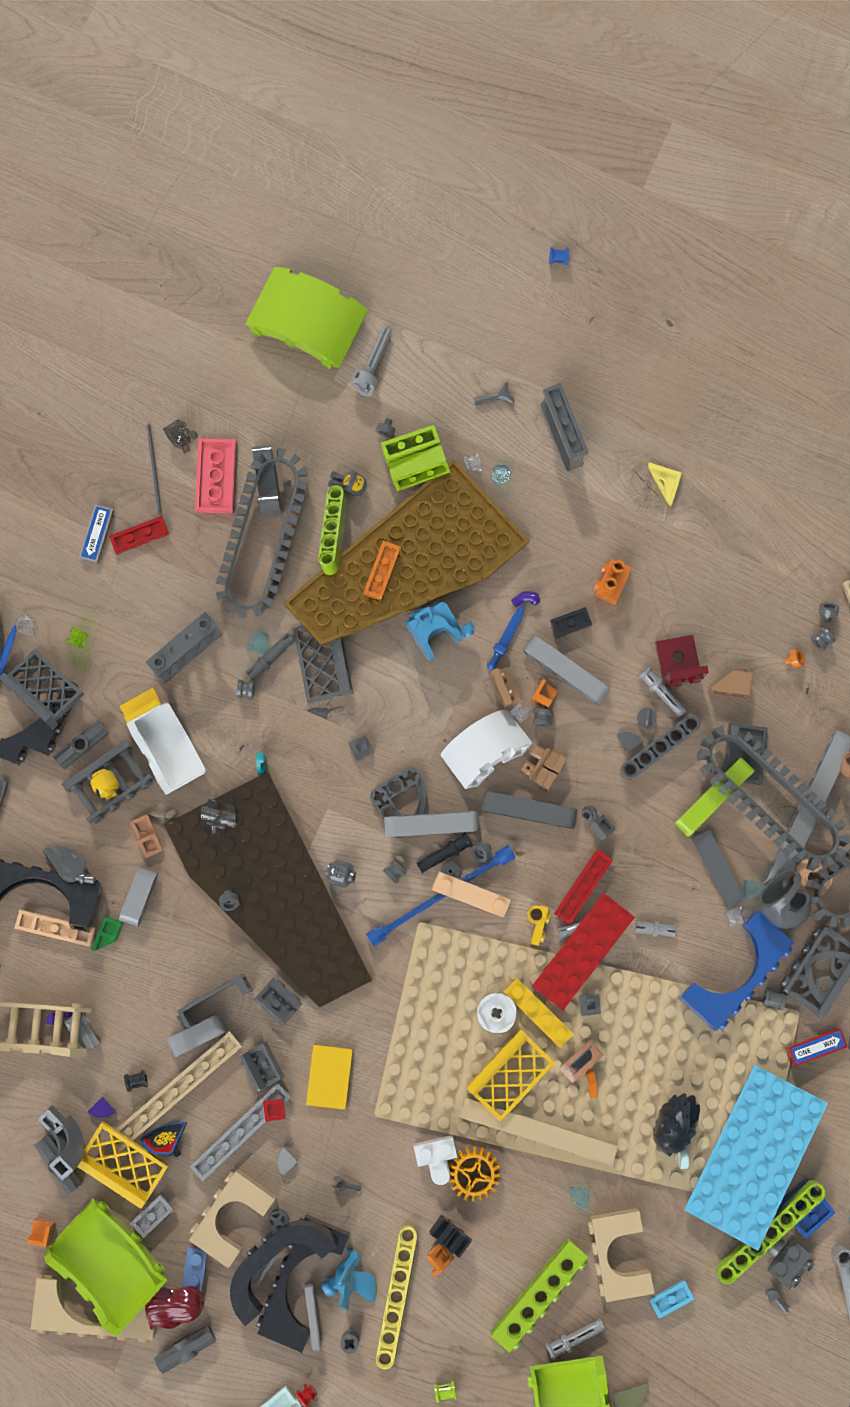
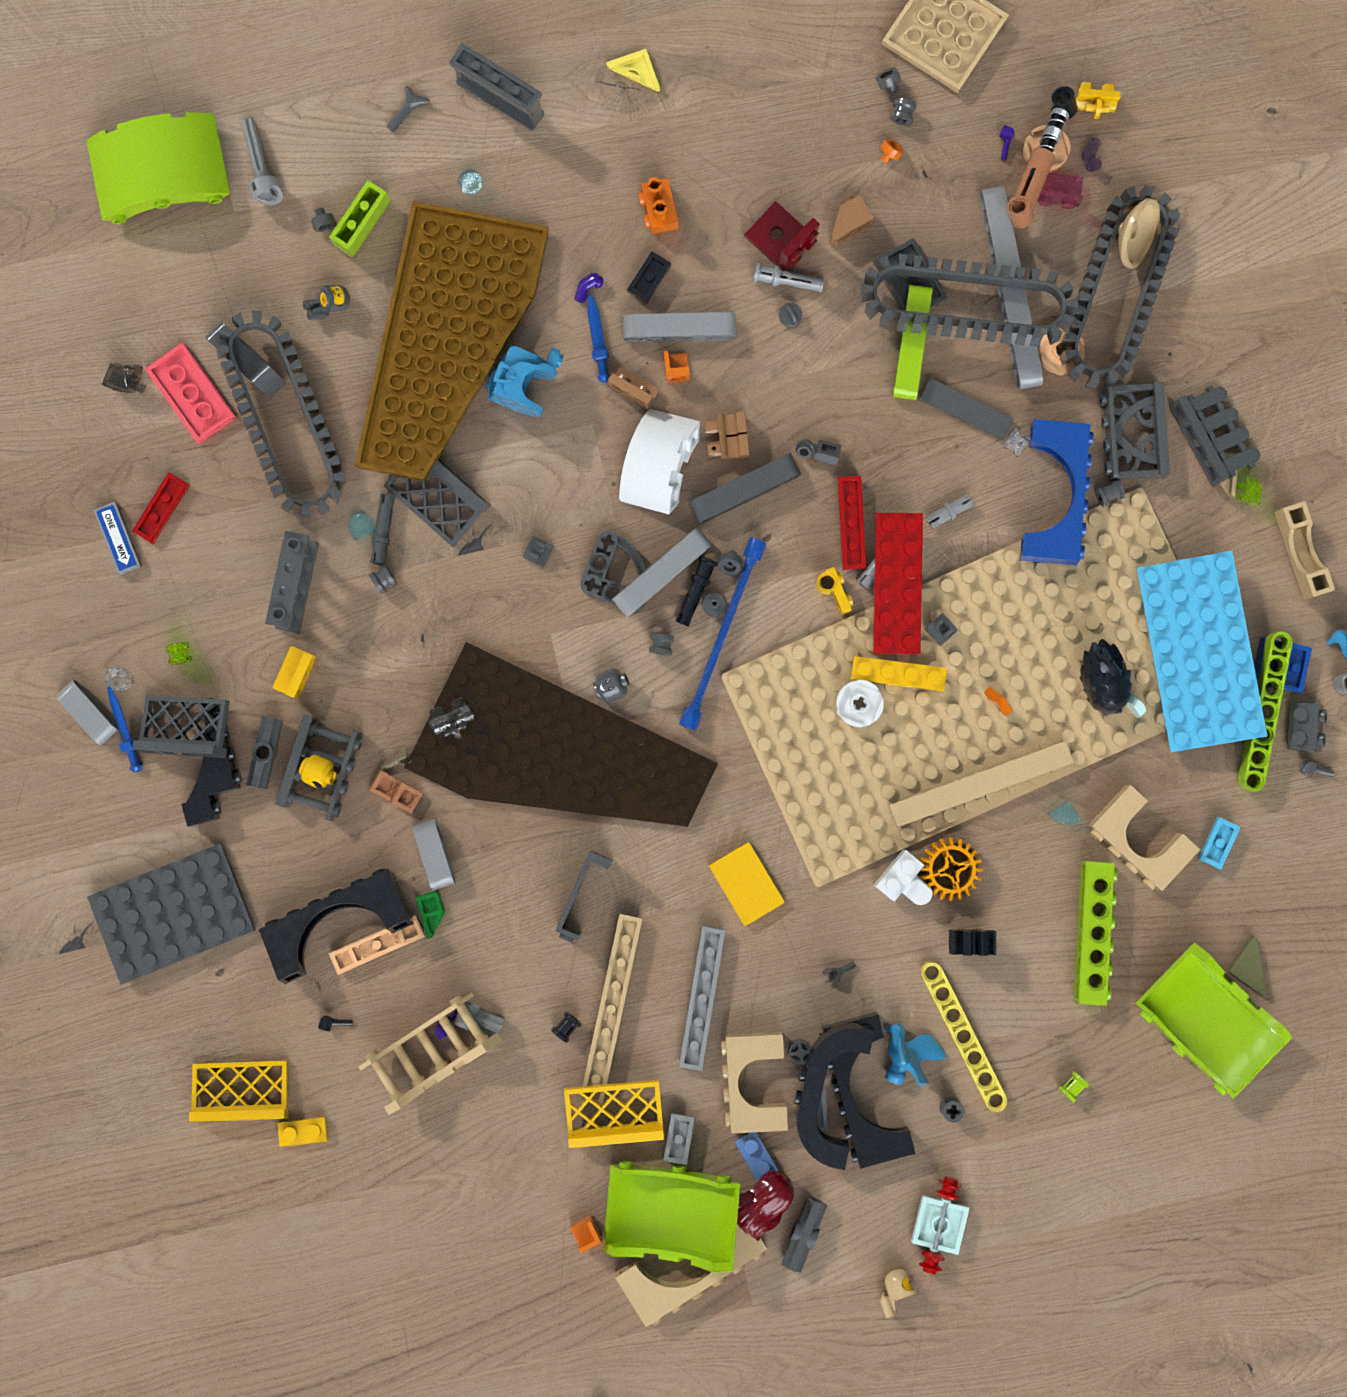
camera: 35 degrees left, 5 degrees up
(48, 1150) = (537, 1155): dark grey piece -> none
(68, 1139) = (546, 1130): dark grey arch -> none
(69, 864) = (343, 875): dark grey animal -> none
(102, 1109) = (554, 1078): dark purple tile -> none
(153, 468) = (124, 432): dark grey piece -> none
(164, 1139) = (636, 1059): shield -> none
(166, 747) = (350, 692): white panel -> none
(196, 1035) = (590, 941): light grey beam -> none
(228, 901) = (524, 791): dark grey tile -> none
(261, 763) = (453, 639): teal tile -> none
(261, 1066) = (675, 922): dark grey bracket -> none
(274, 1110) = (718, 953): red tile -> none
(278, 1001) = (644, 850): dark grey bracket -> none
(286, 1161) = (765, 992): light grey tile -> none
(313, 1316) = (918, 1131): light grey tile -> none
(334, 537) = (353, 369): lime beam -> none
(382, 570) = (427, 362): orange plate -> none
(419, 468) = (385, 234): lime brick -> none
(439, 1258) = (978, 970): orange panel -> none
(471, 894) = (750, 610): light nougat plate -> none
(472, 463) = (434, 191): clear wheel -> none
(495, 1065) = (895, 749): yellow fence -> none
(520, 712) = (666, 401): clear wheel -> none
(542, 717) = (691, 389): dark grey wheel -> none
(581, 1061) = (973, 688): nougat slope -> none
(597, 1327) = (1169, 920): light grey pin -> none
(629, 740) = (790, 350): dark grey tile -> none
(668, 743) = (825, 323): dark grey beam -> none
(751, 889) = (1012, 404): clear light blue tile -> none
(775, 1249) = (1281, 726): dark grey tile -> none
(782, 907) = (1057, 398): dark grey piece -> none
(816, 1047) = (1182, 508): tile -> none

